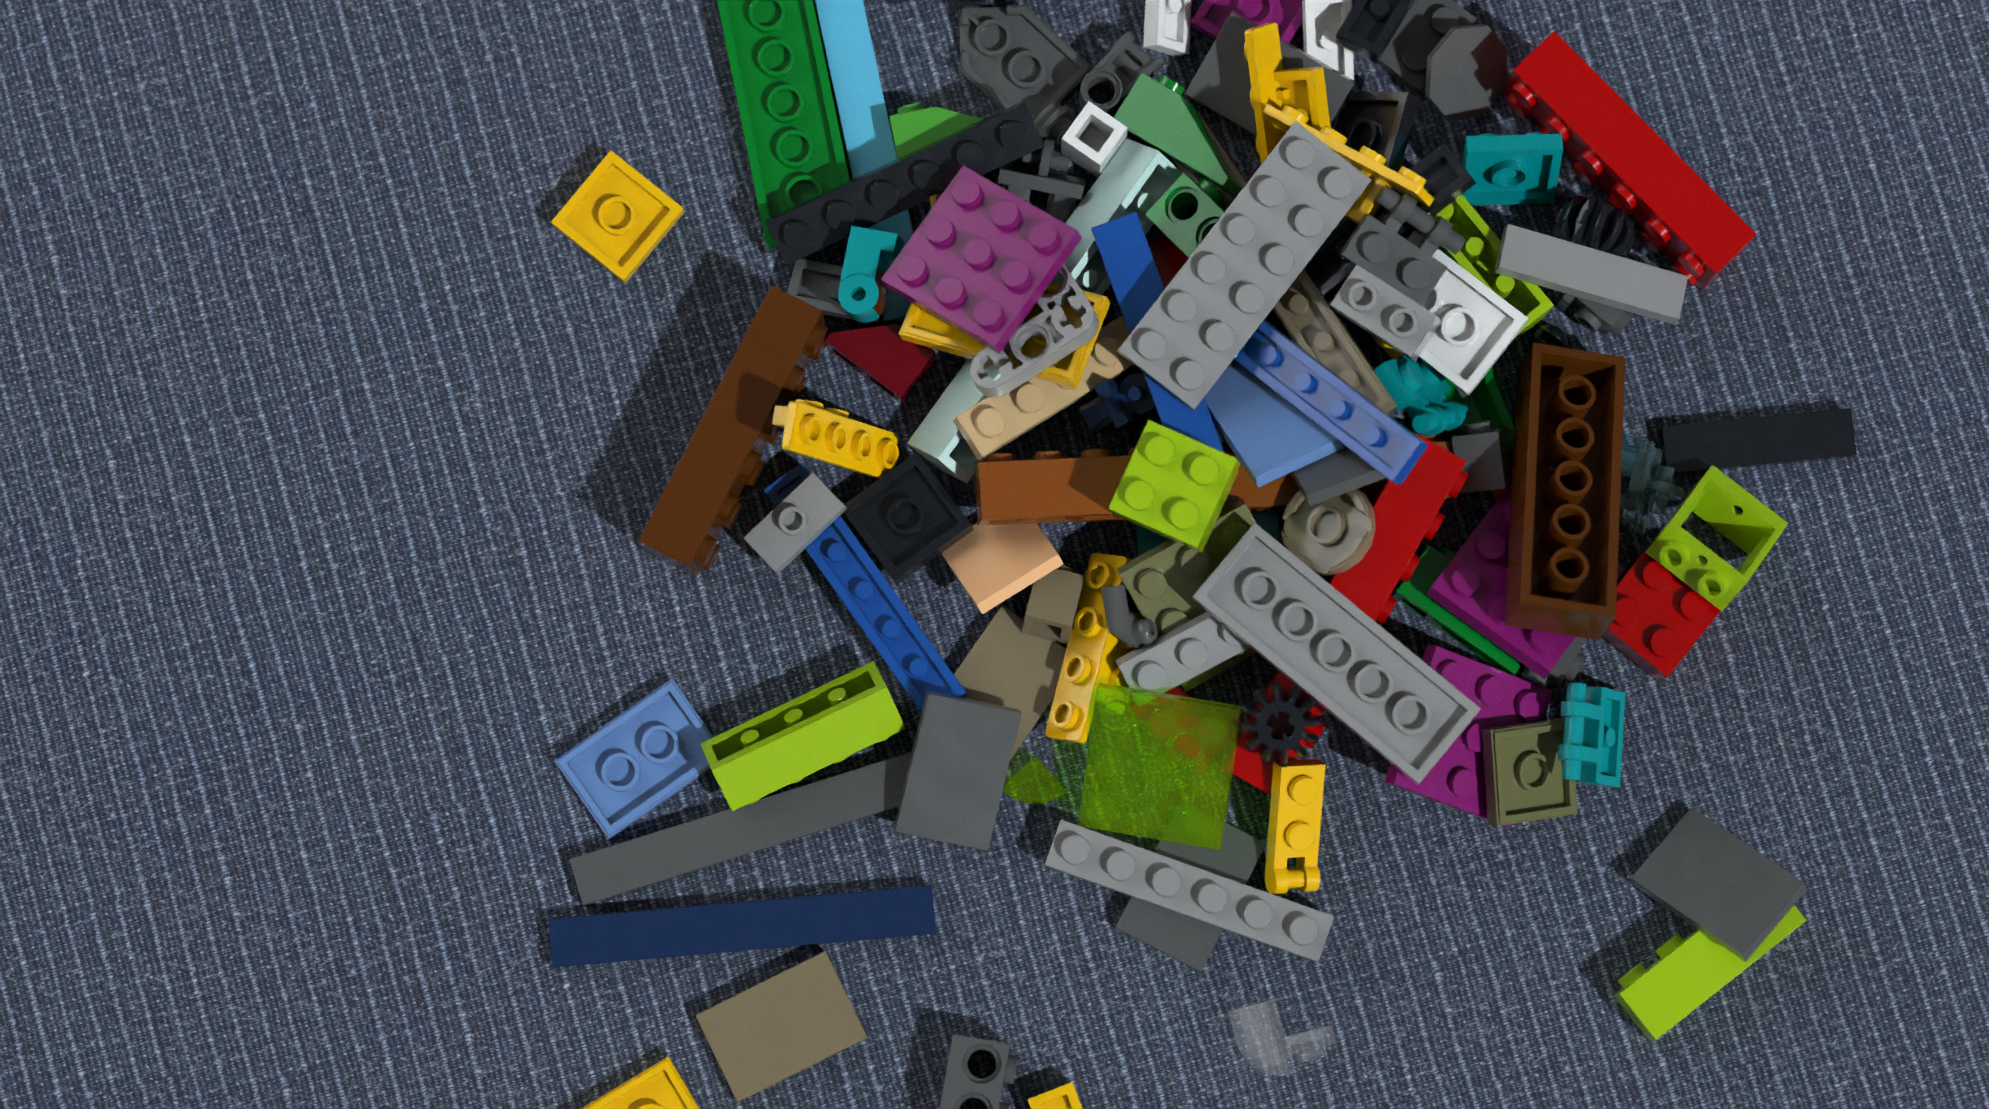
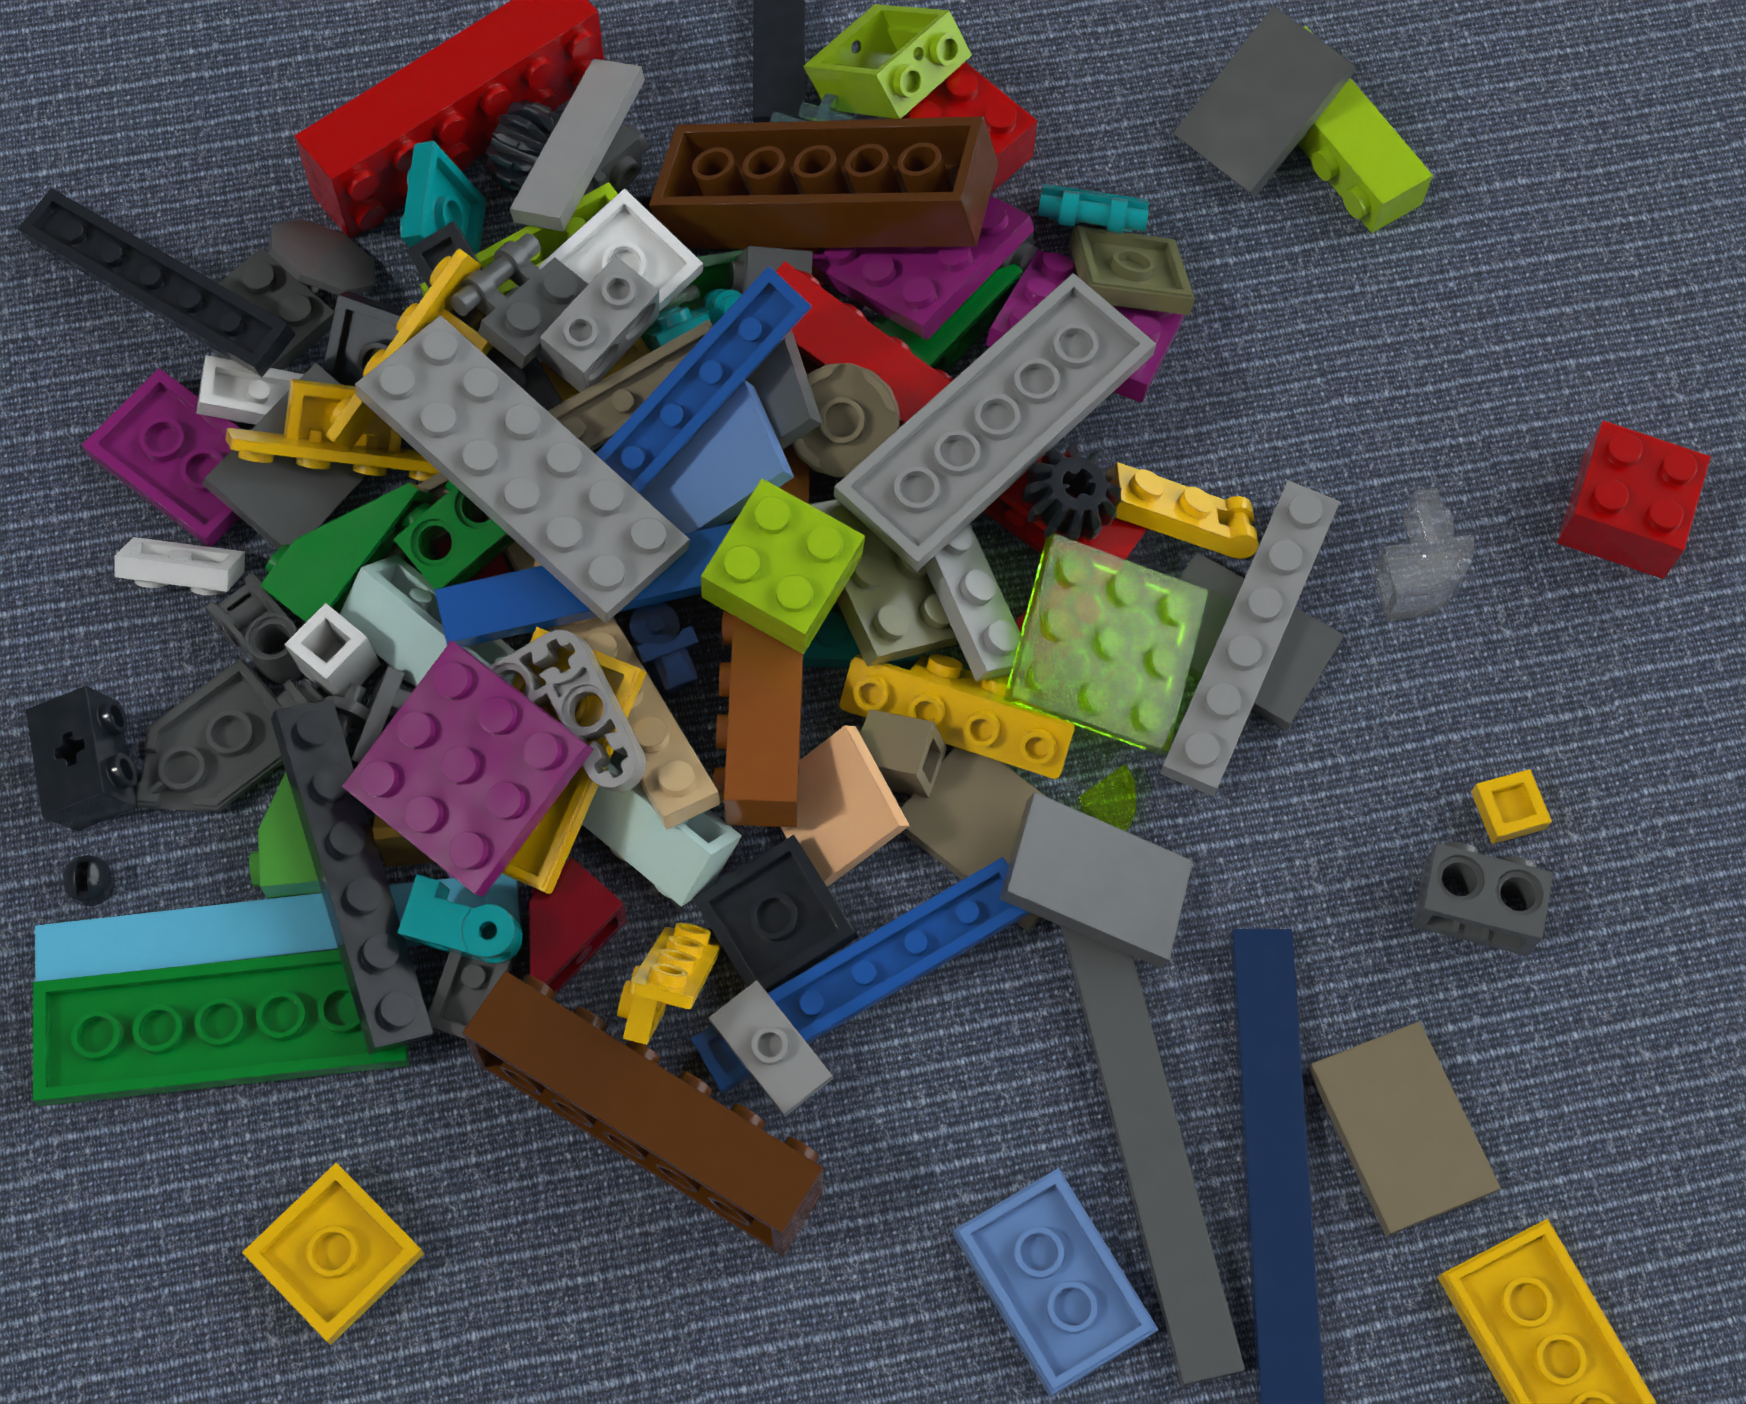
camera: 90 degrees left, 15 degrees down
(803, 736) = (1043, 1063): lime brick -> none
(1122, 622) = (933, 663): dark grey arm -> none

